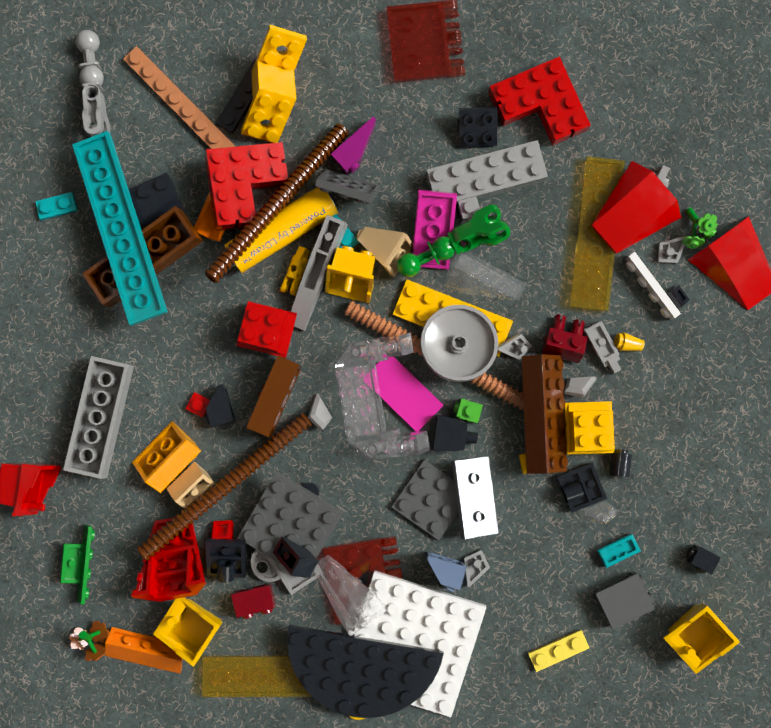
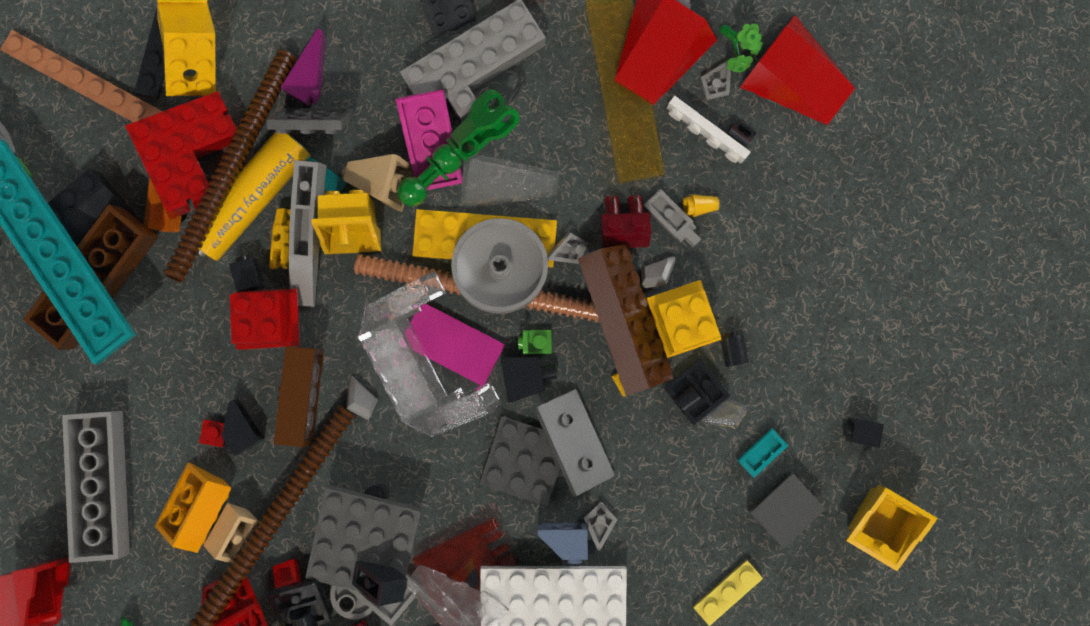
camera: 25 degrees left, 0 degrees up
(261, 289) = (246, 274): none -> black brick

